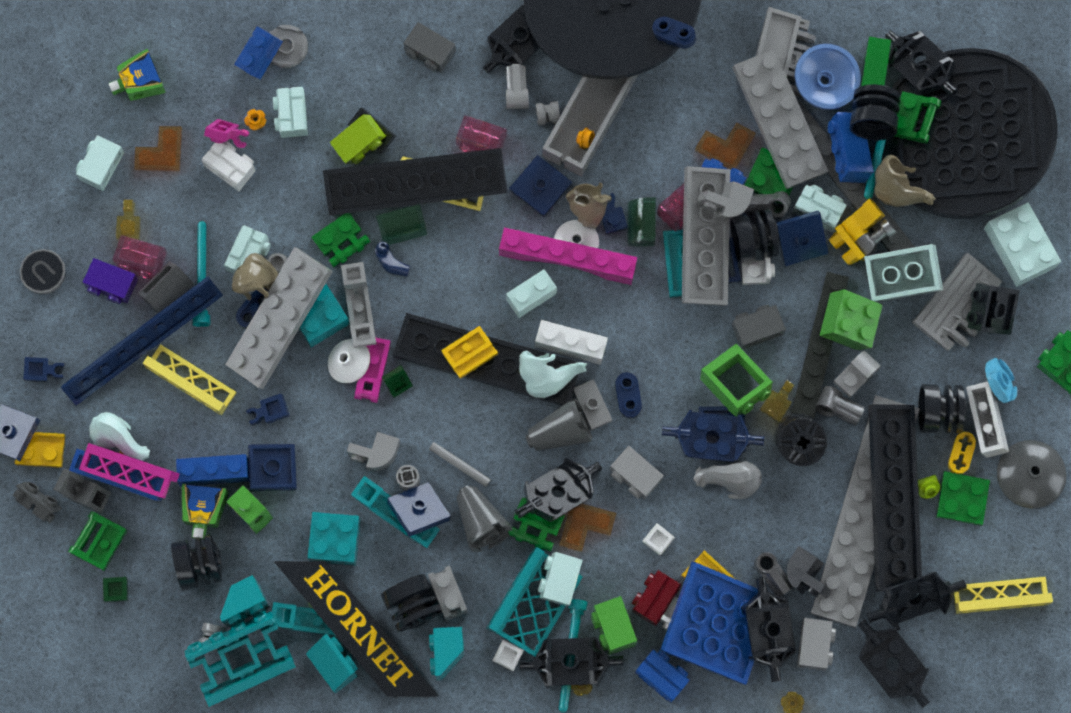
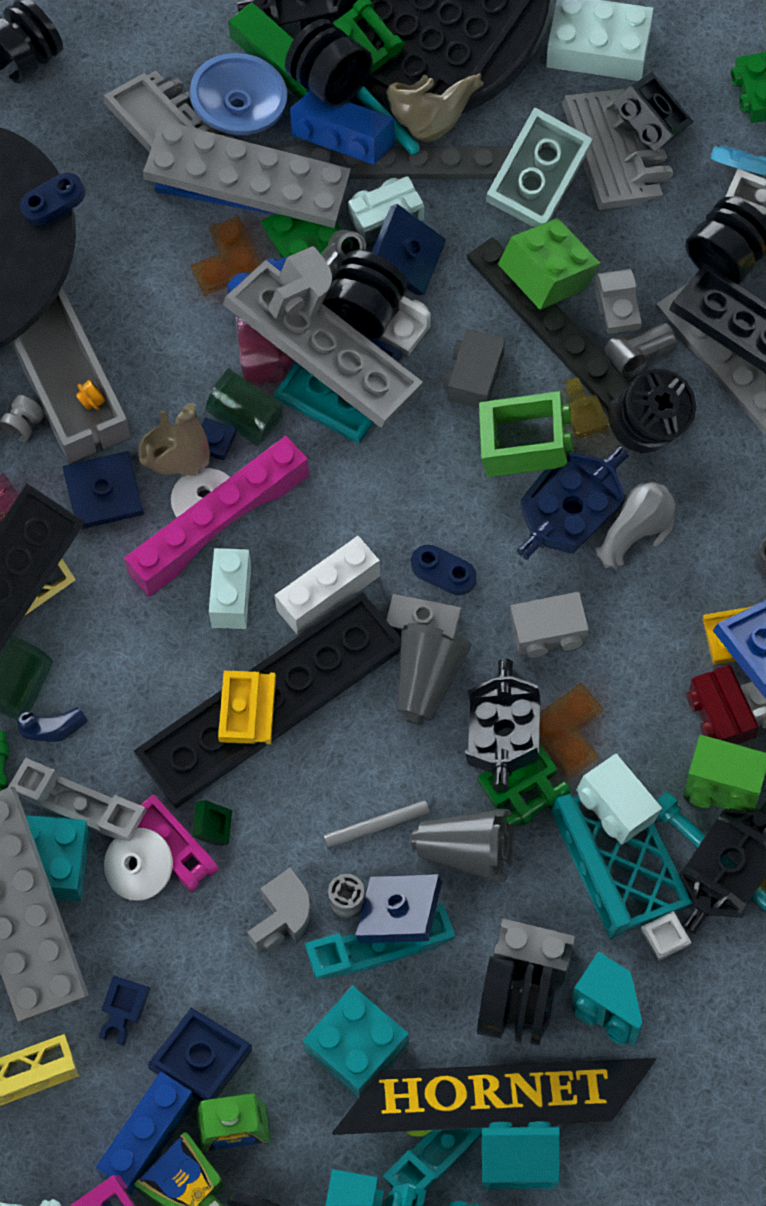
camera: 50 degrees left, 10 degrees down
(543, 379) = (346, 642): light aqua piece -> none
(658, 539) = (649, 658): white tile -> none
(856, 235) = (453, 193): yellow hips -> none

